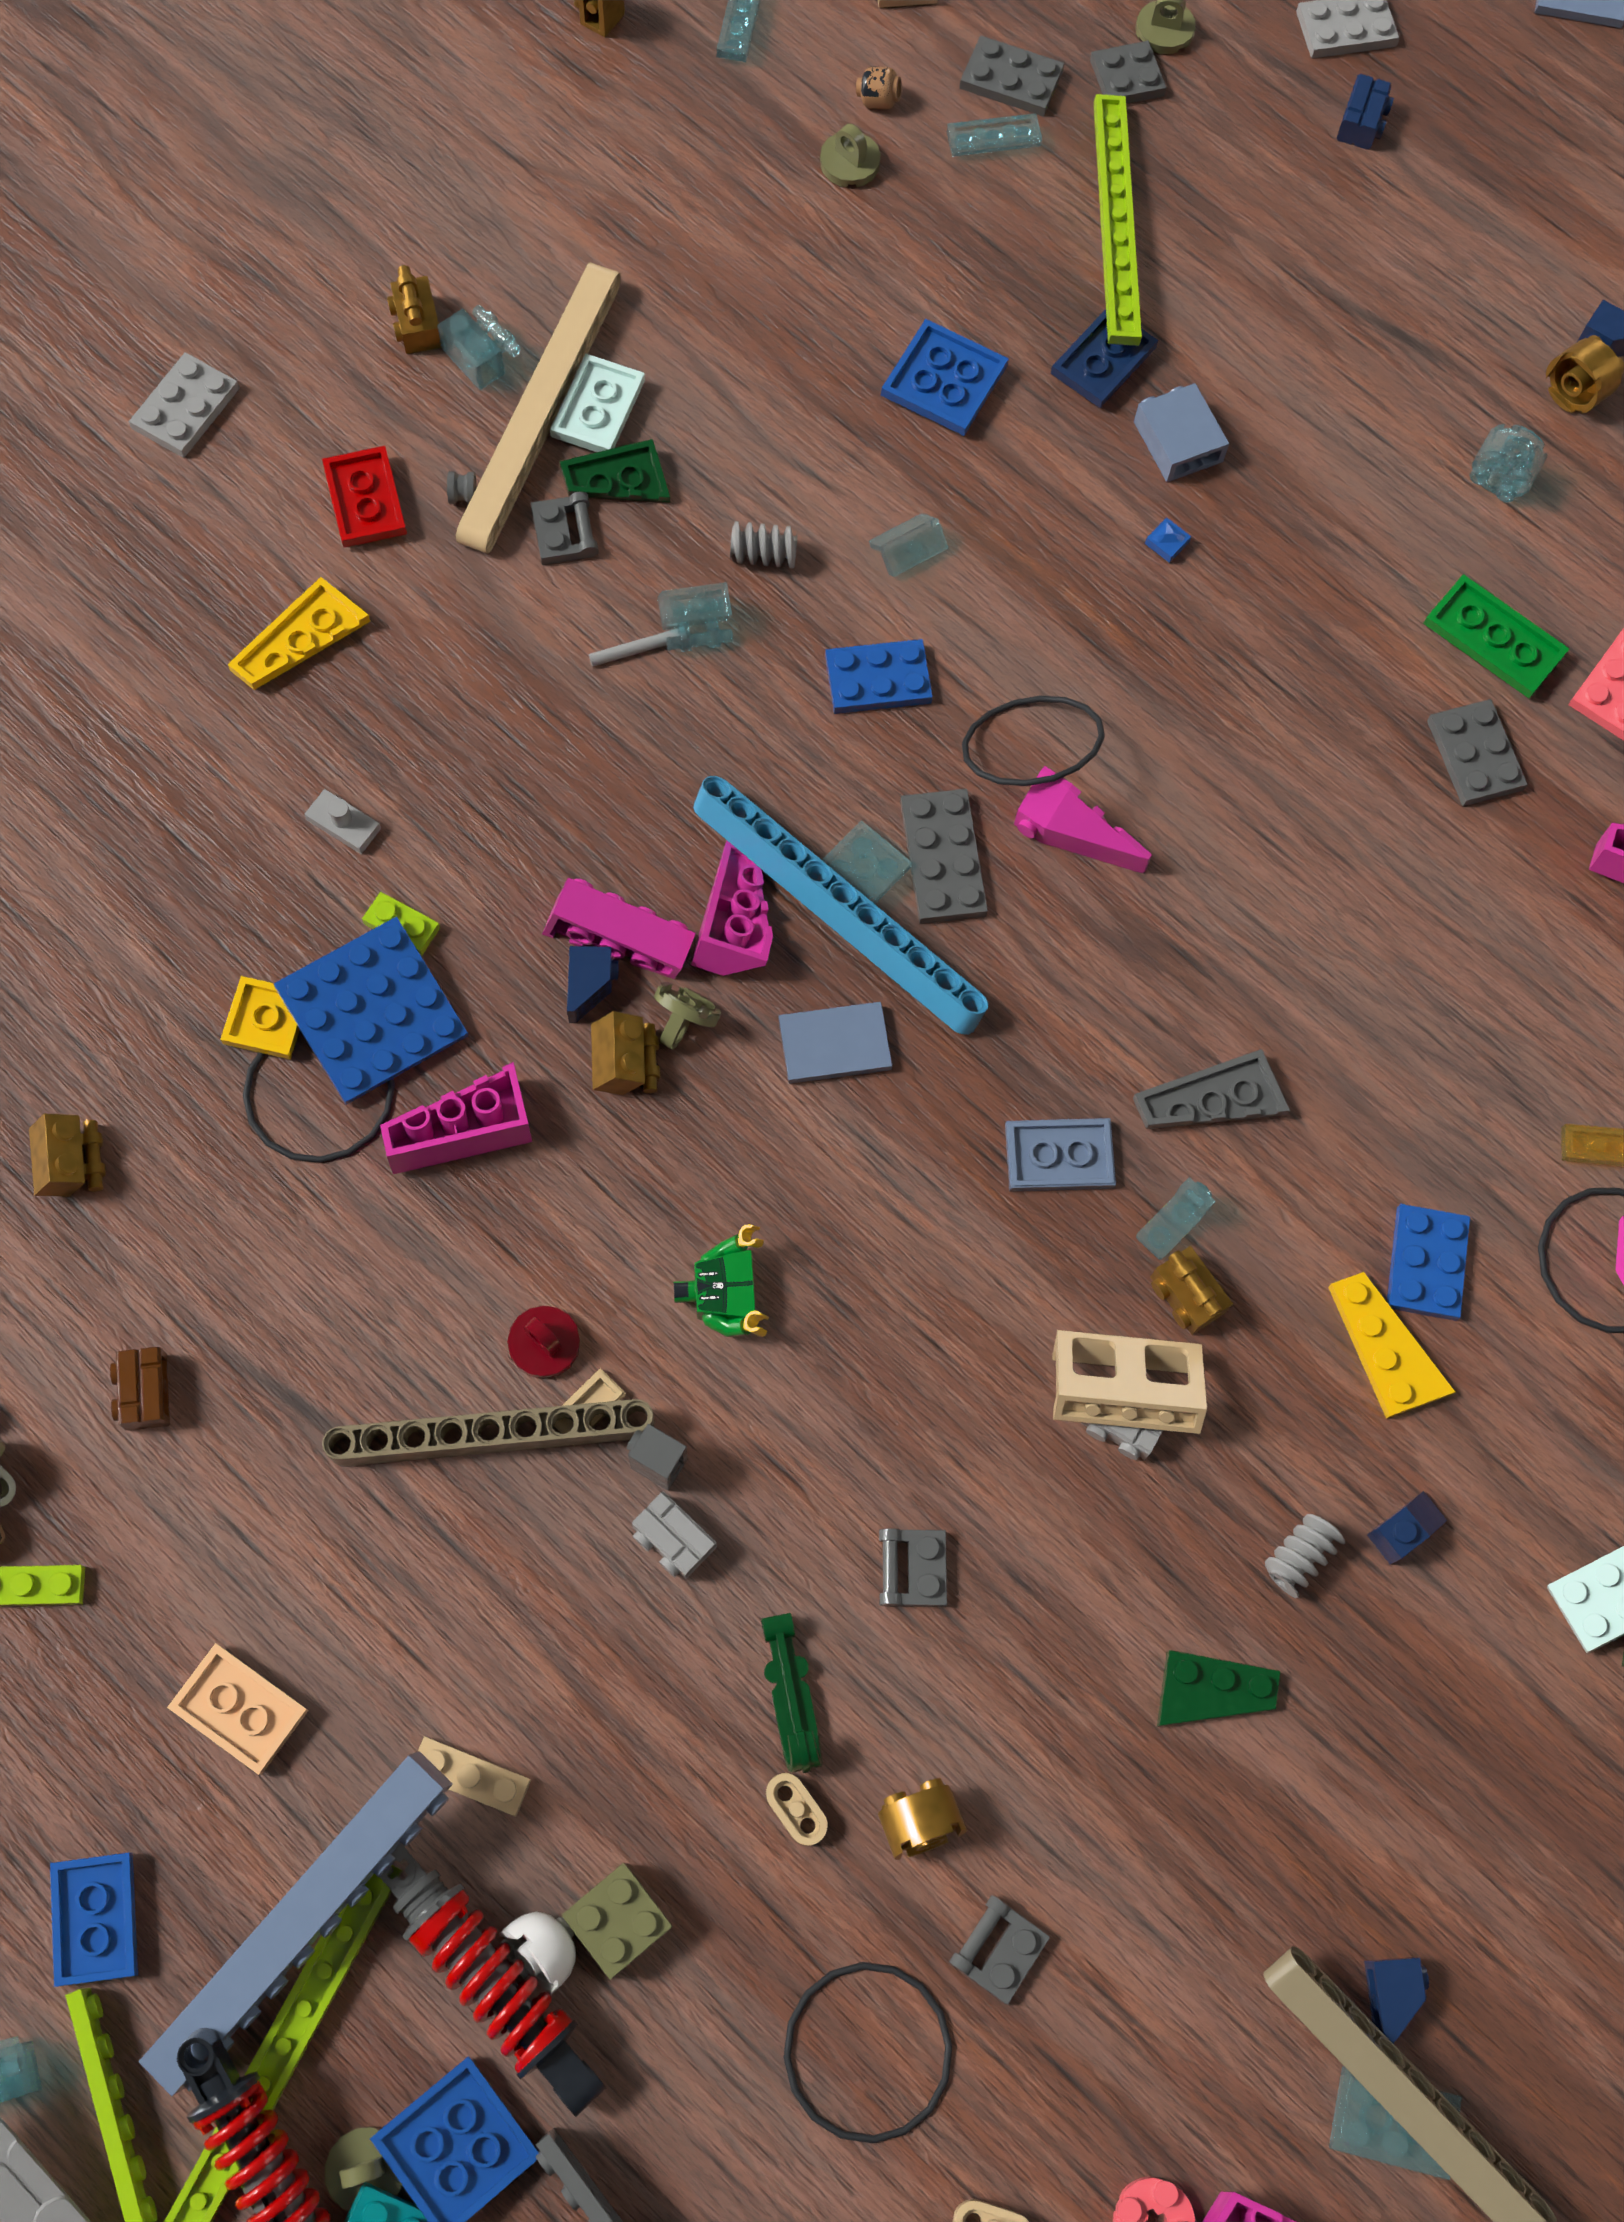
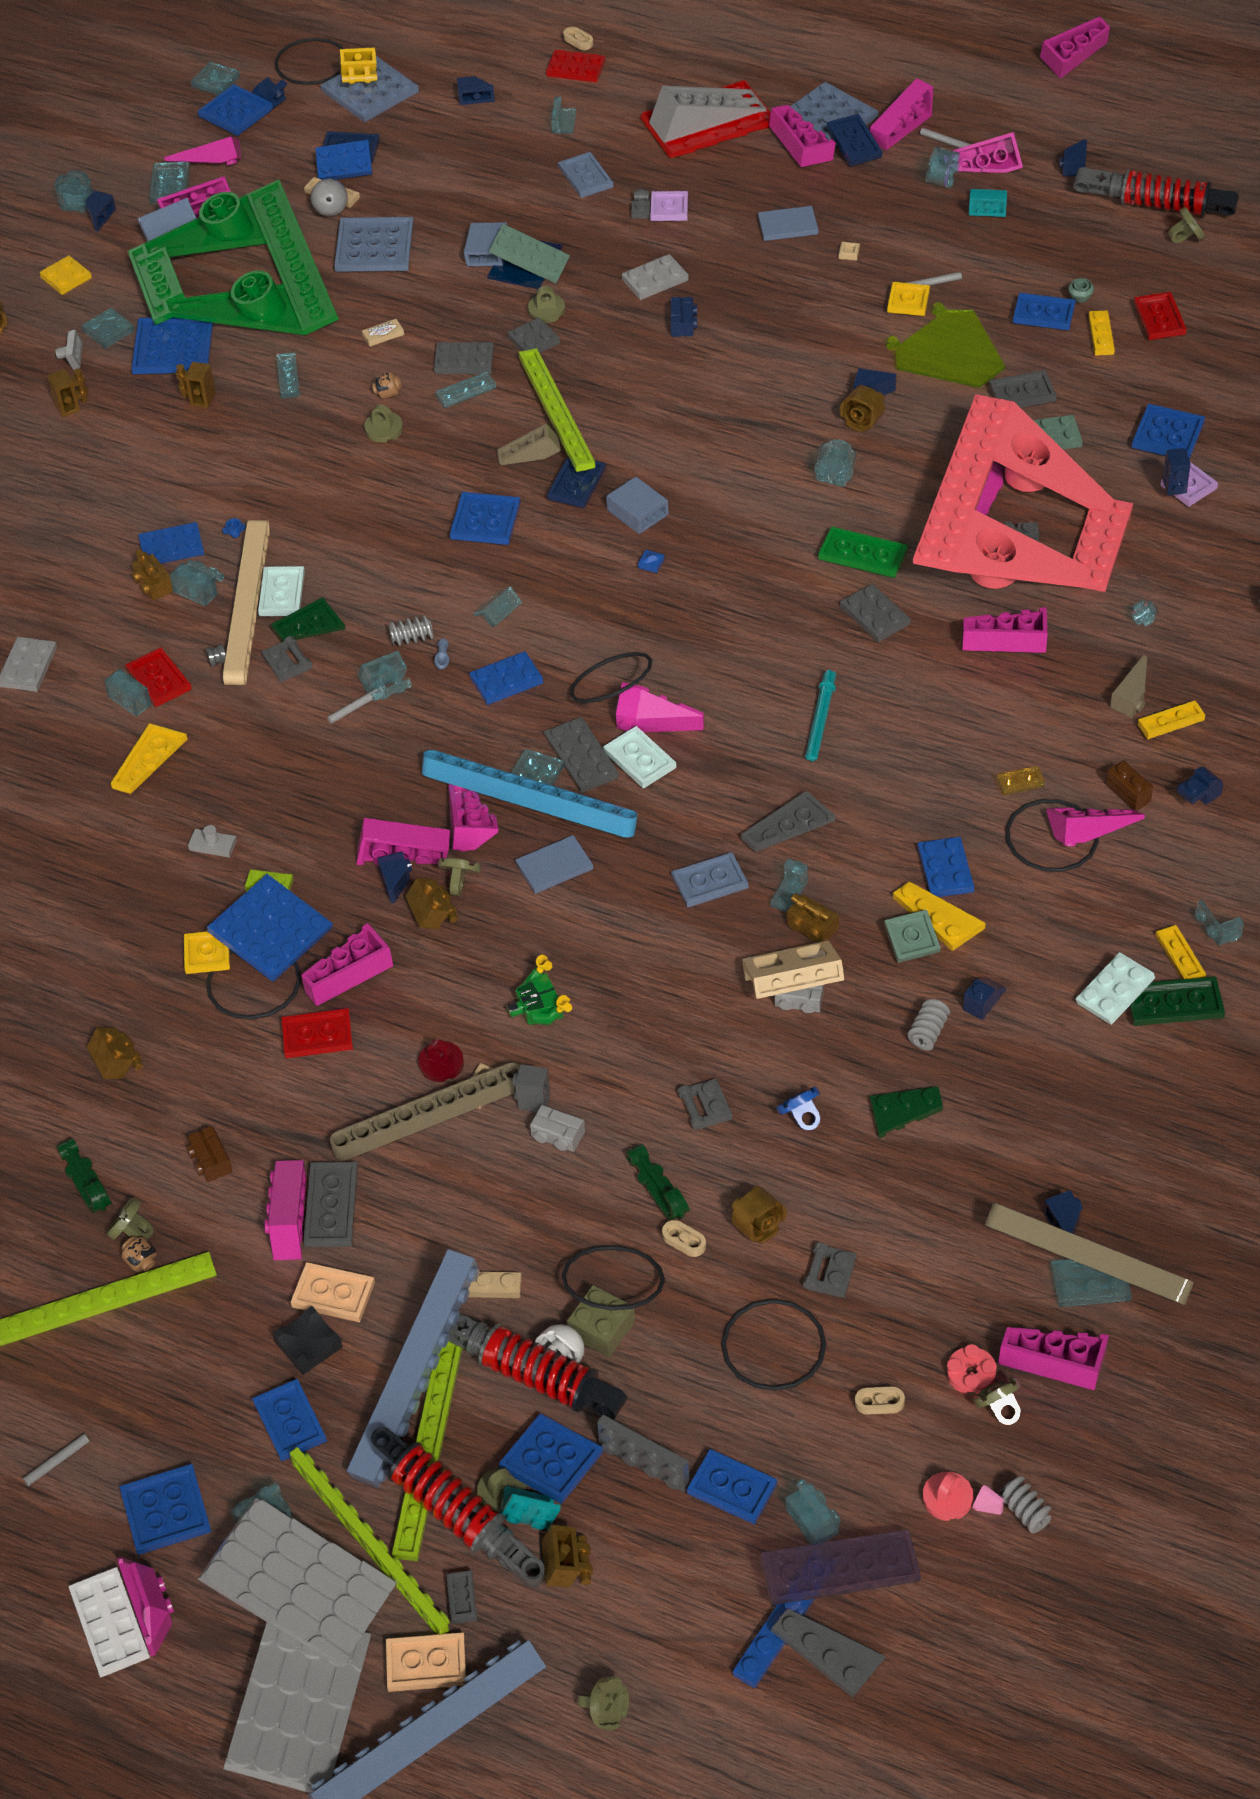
camera: 10 degrees left, 20 degrees down
(168, 1787) = (307, 1340): none -> black brick
(219, 1533) = (286, 1209): none -> dark pink wedge
(290, 1546) = (331, 1204): none -> dark grey plate
(308, 510) = (128, 692): none -> clear light blue brick
(376, 1225) = (317, 1033): none -> red plate
(467, 262) = (173, 543): none -> blue plate
(566, 266) = (234, 527): none -> blue plate
(618, 1915) = (608, 1307): none -> black piece
(794, 607) = (441, 658): none -> sand blue piece
(1029, 894) = (639, 757): none -> light aqua plate
(1055, 1630) = (799, 1105): none -> tile
(1056, 272) = (531, 447): none -> dark tan slope
(1333, 1378) = (912, 936): none -> sand green plate
(1355, 869) = (826, 688): none -> teal axle

